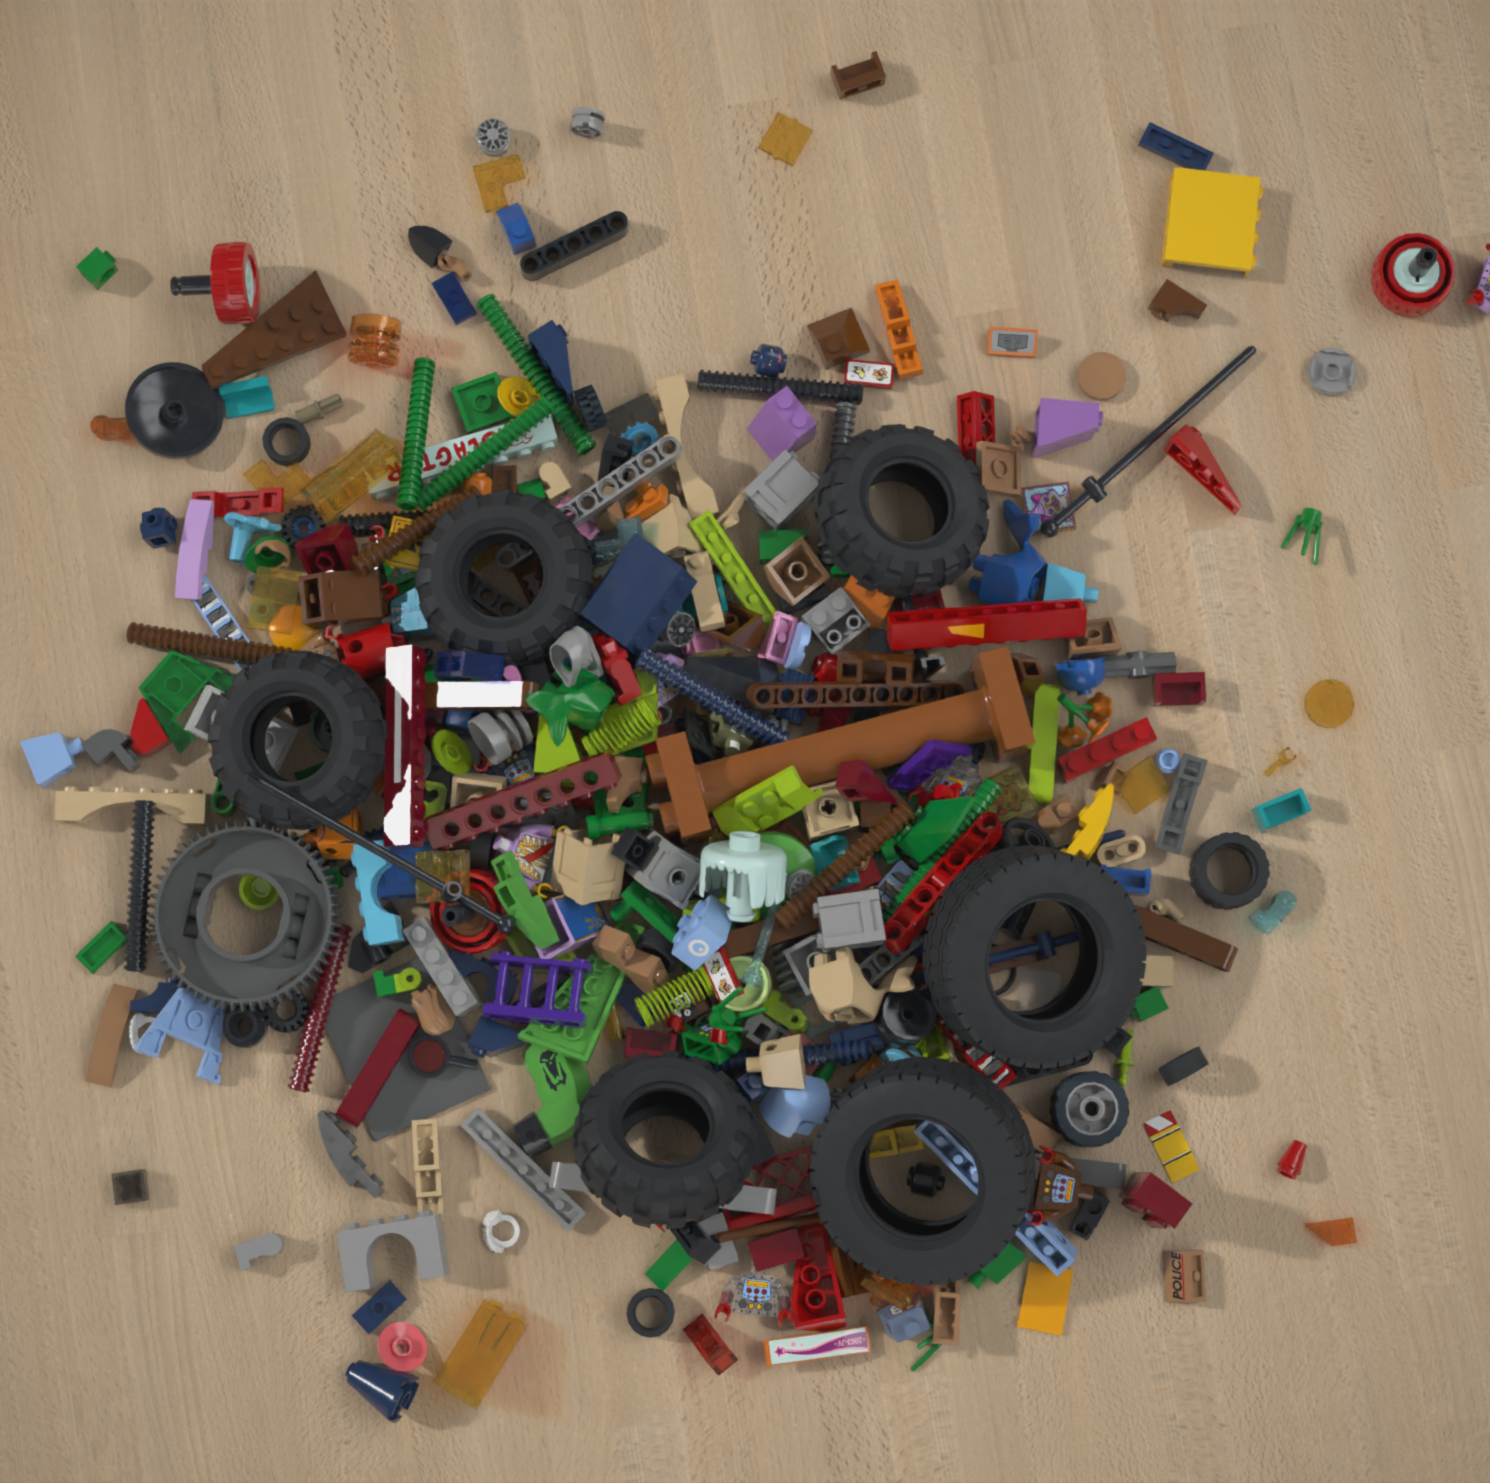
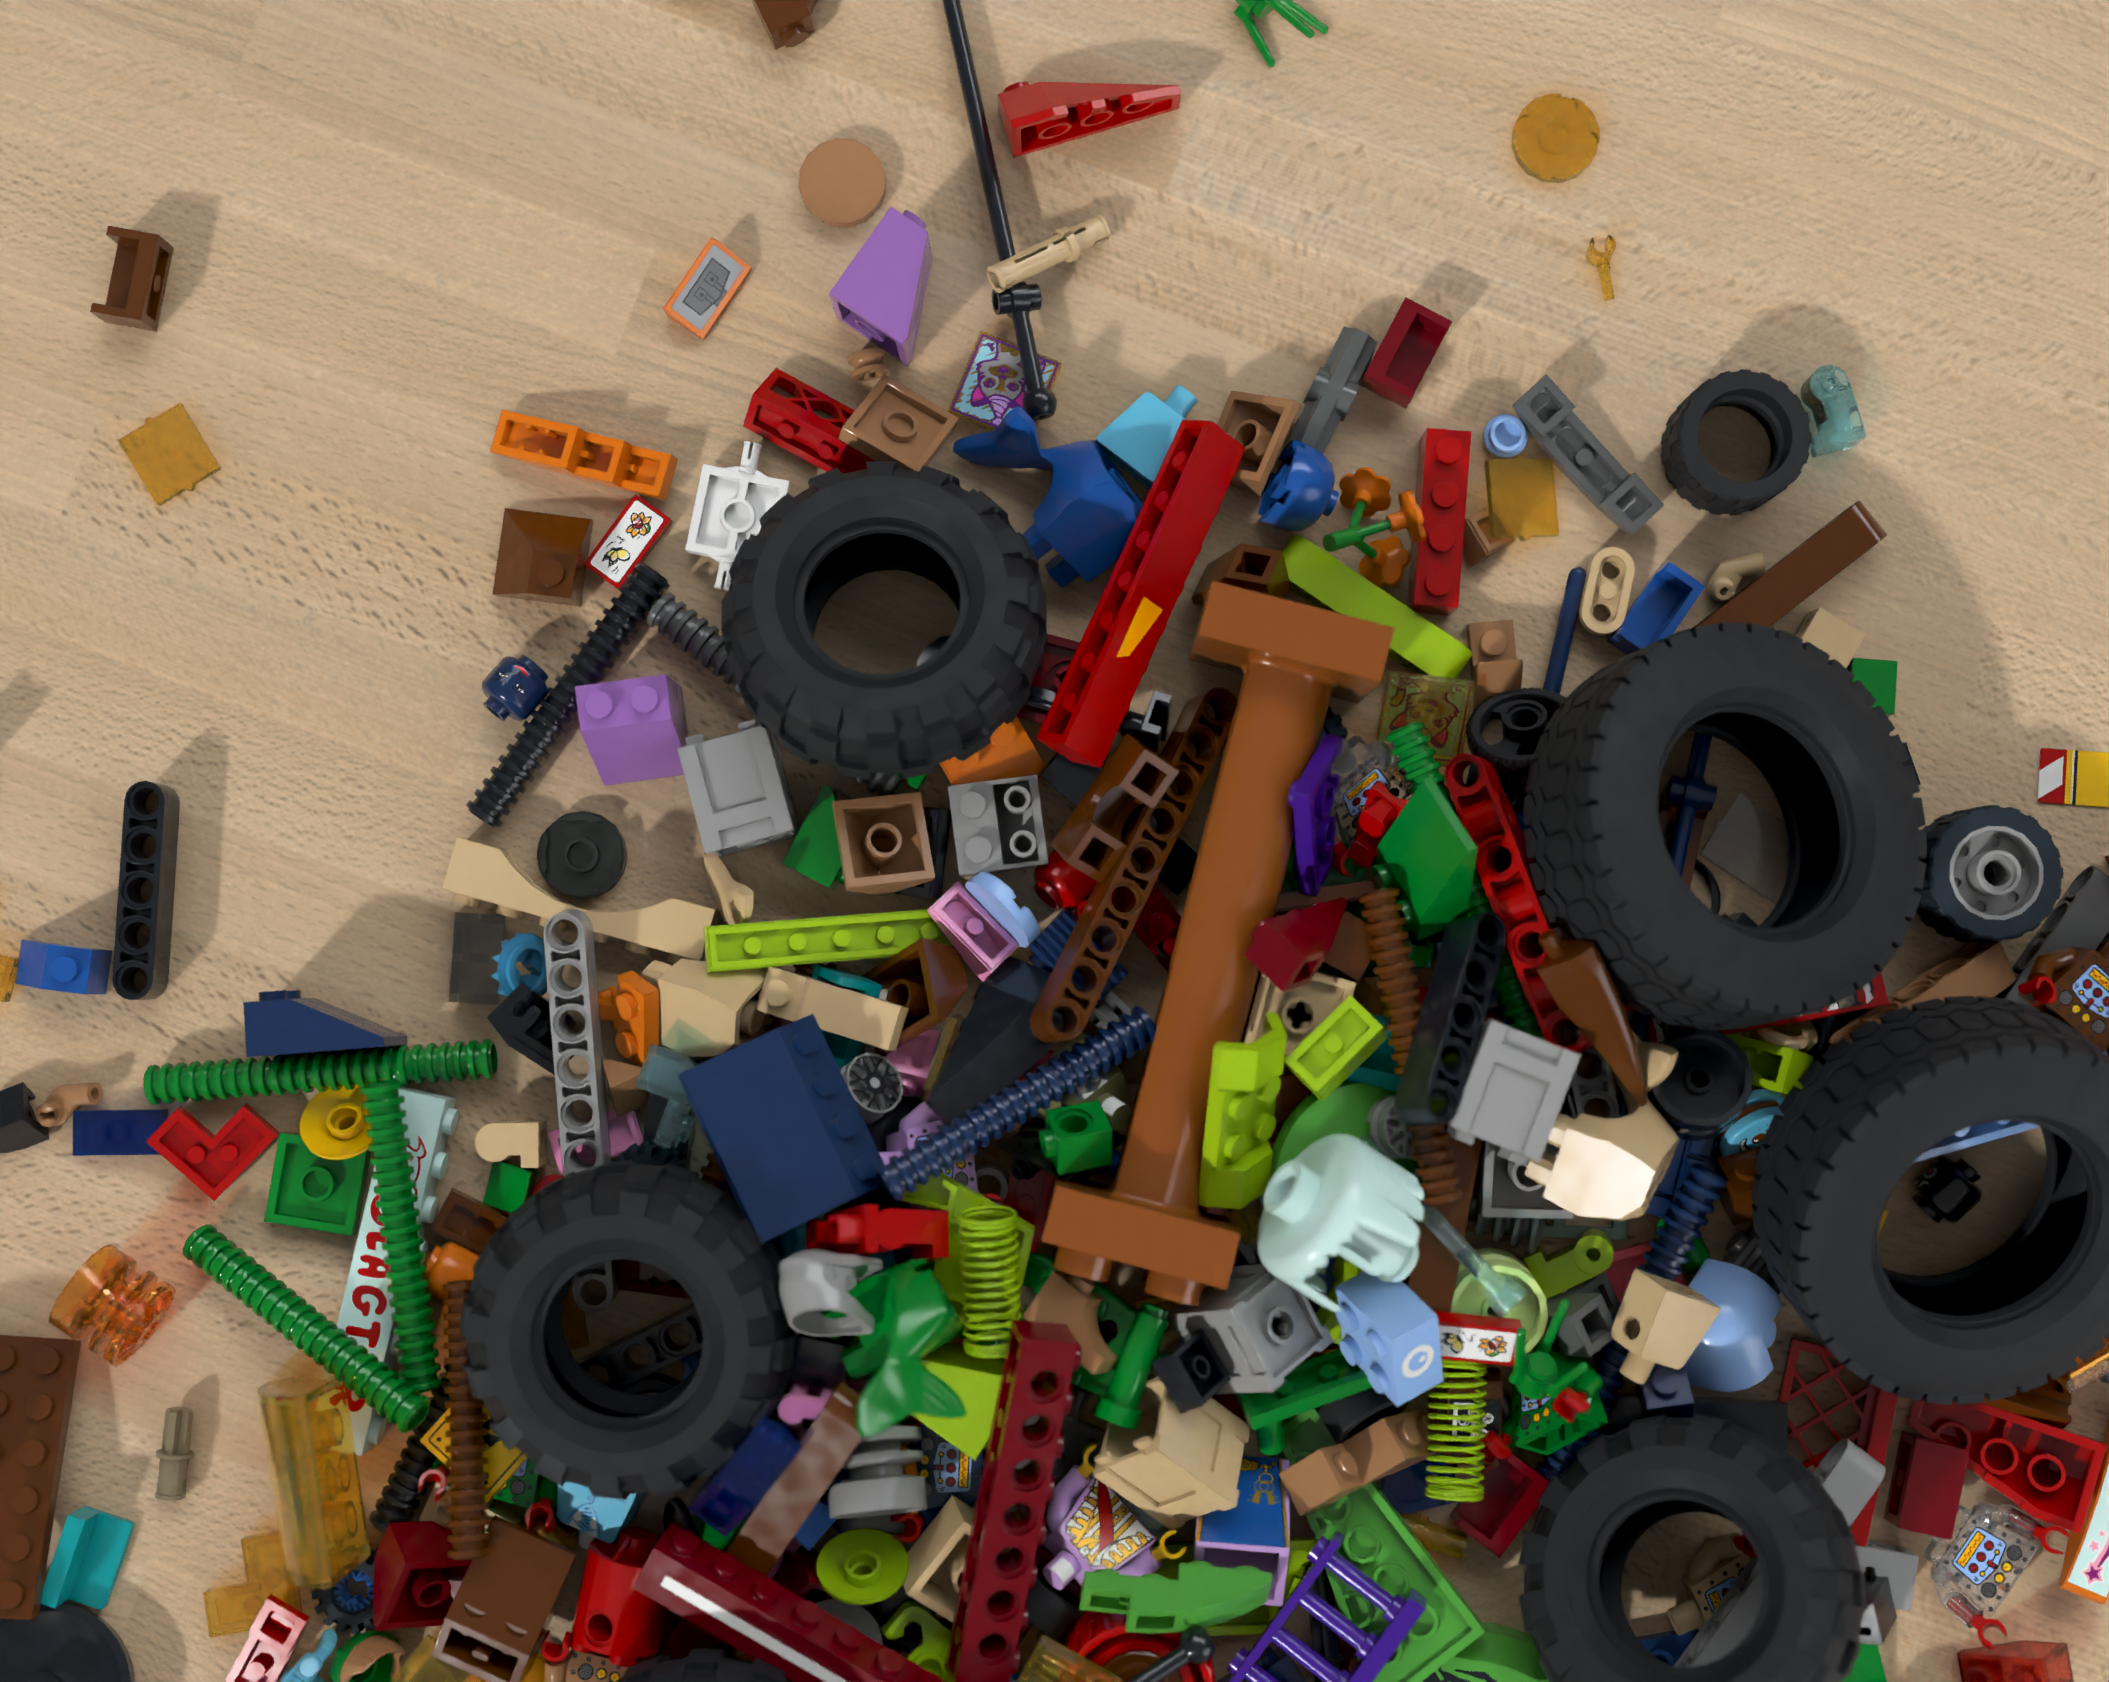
camera: 55 degrees left, 5 degrees up
(277, 425) = (164, 1548): black tyre -> none
(467, 349) = (212, 1159): none -> red plate
(590, 408) = (427, 1018): black bush -> none
(707, 437) = (582, 855): none -> pearl dark grey tile
(710, 735) = (1077, 1137): none -> green brick
(769, 1227) = (1890, 1487): reddish brown piece -> none
(822, 832) = (1336, 1048): none -> lime panel
(858, 870) = (1451, 1020): none -> black beam
(913, 932) = (1590, 999): none -> reddish brown piece
(914, 410) = (730, 509): none -> white plate
(1093, 824) = (1543, 606): yellow slope -> none
(1124, 1061) = (1933, 776): lime piece -> none
(1132, 496) = (1063, 246): none -> tan pin
(1183, 1066) = (1997, 691): black tyre -> none
(1281, 809) = (1680, 307): teal panel -> none

